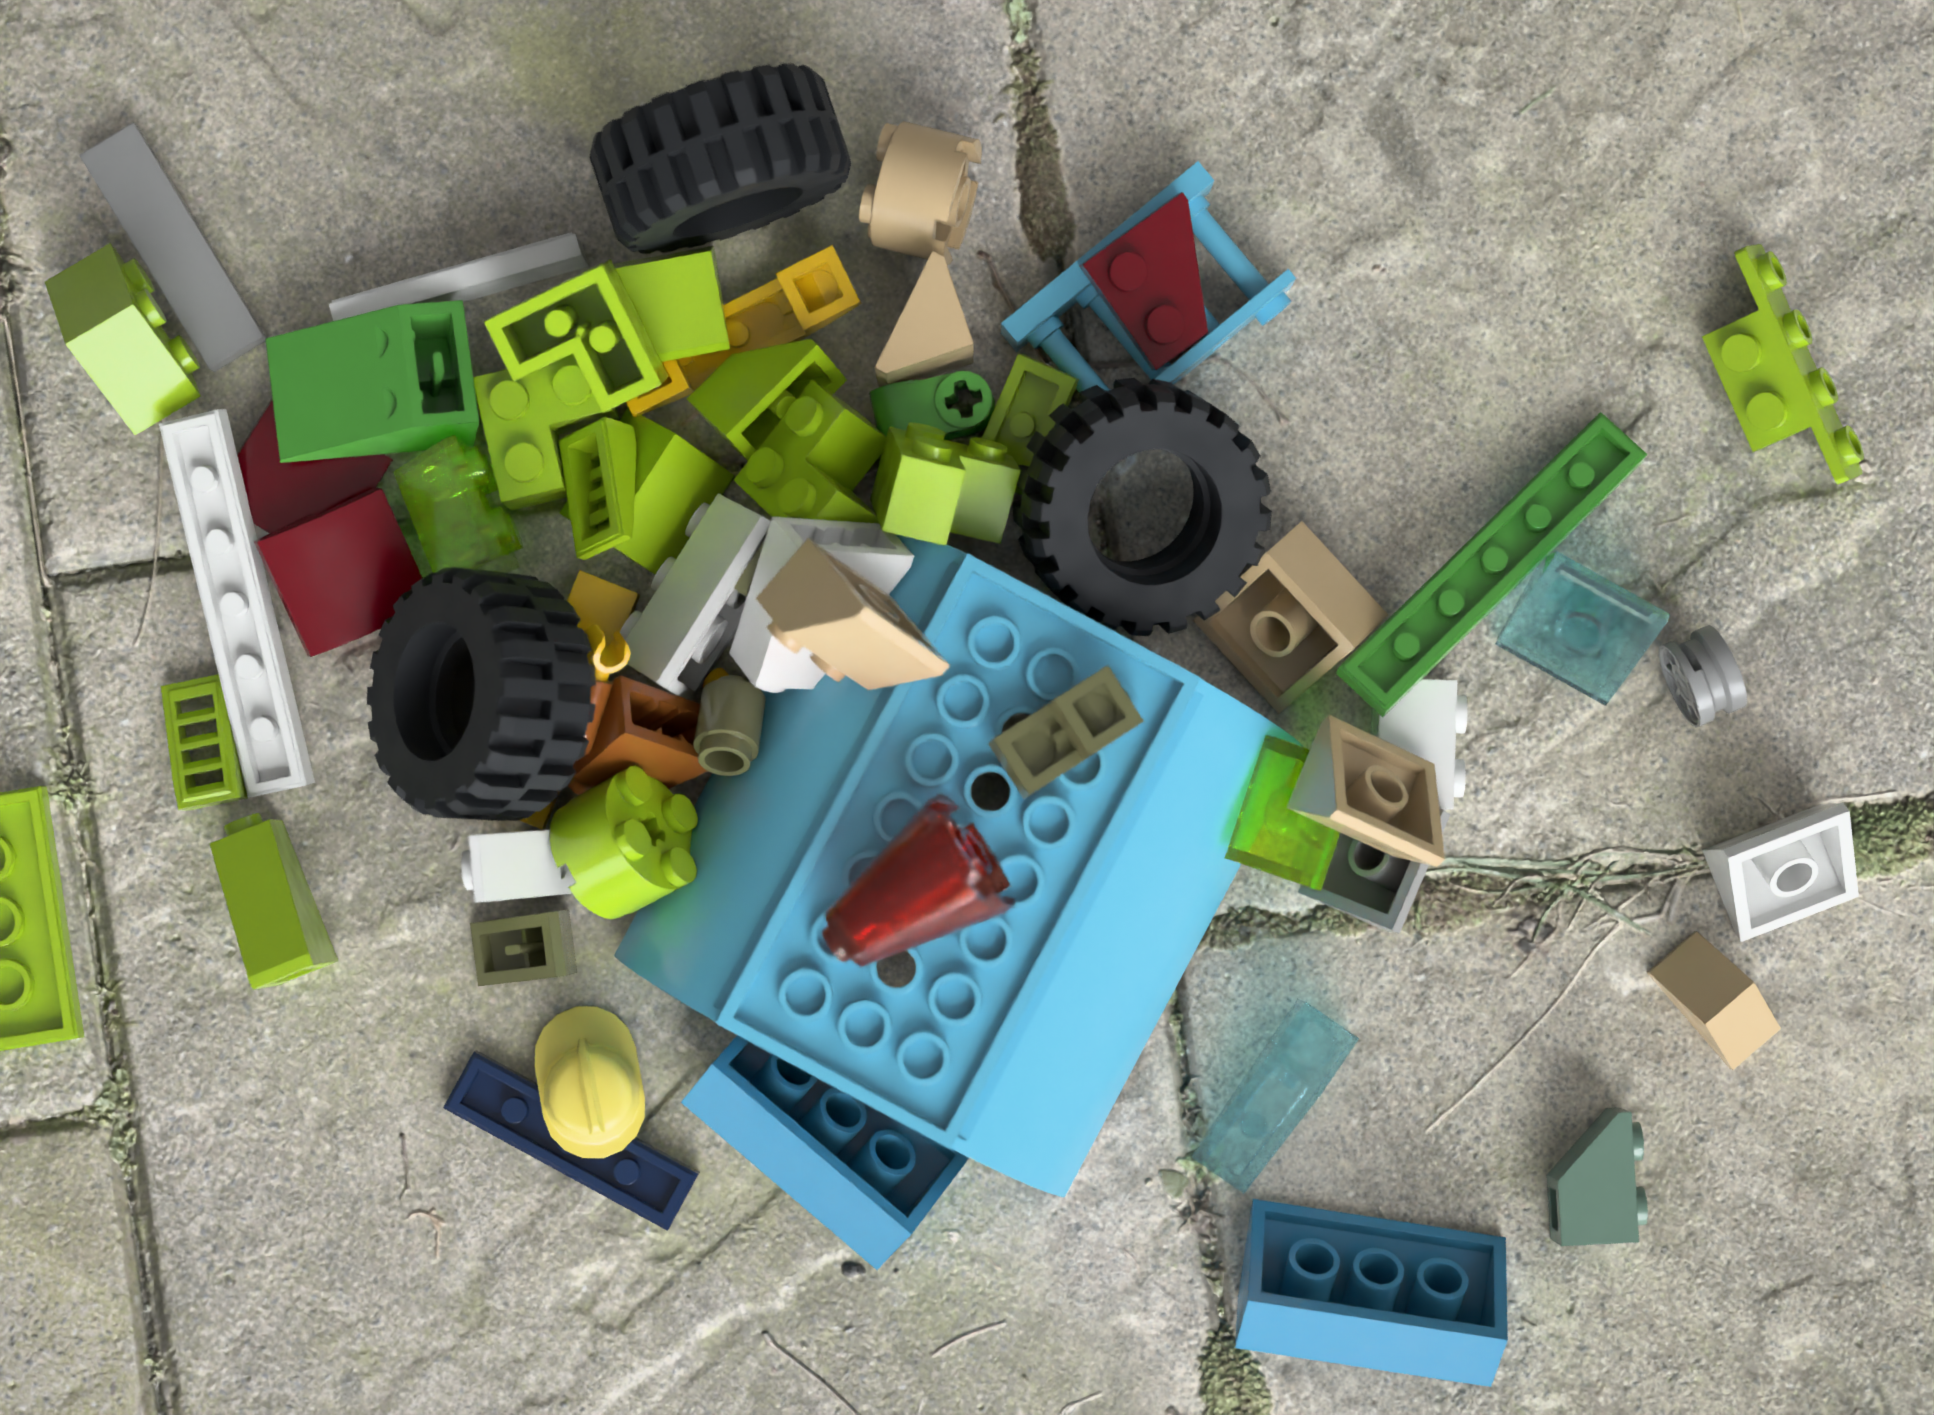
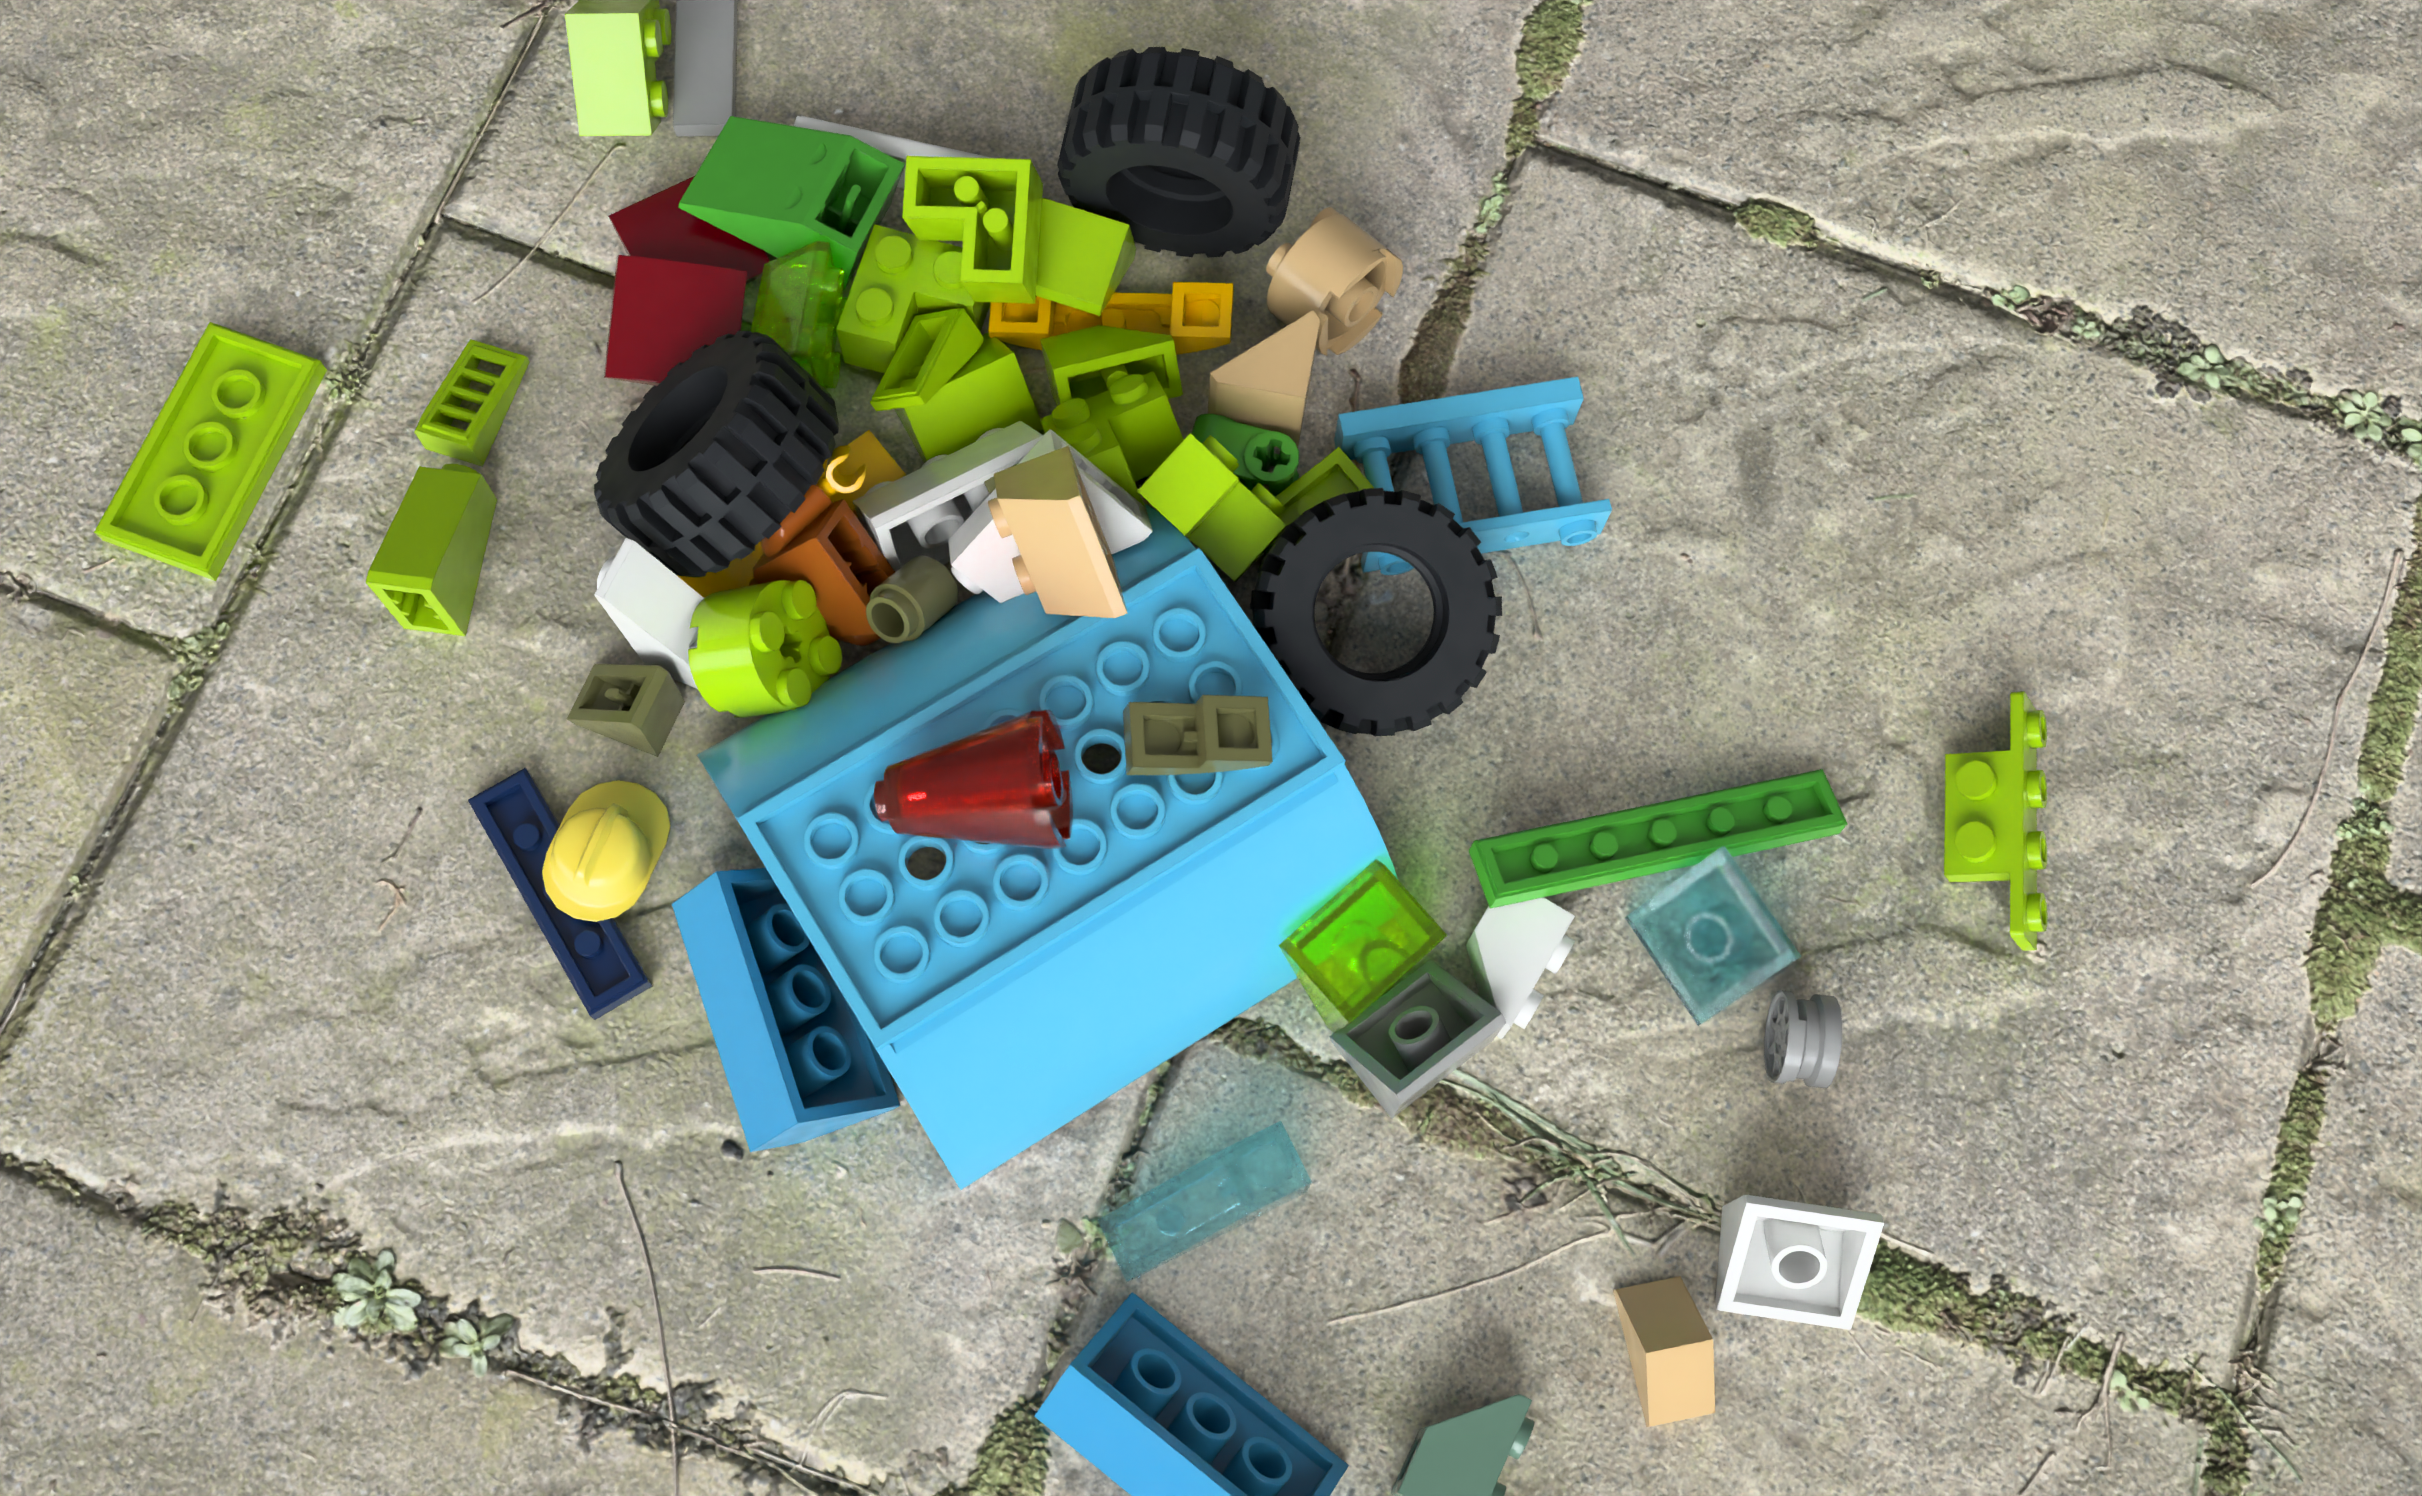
camera: 25 degrees right, 15 degrees down
(236, 602) = (572, 306): white tile -> none
(1153, 282) = (1486, 447): dark red wing -> none
(1292, 618) = (1451, 787): tan slope -> none
(1371, 793) = (1441, 957): tan slope -> none

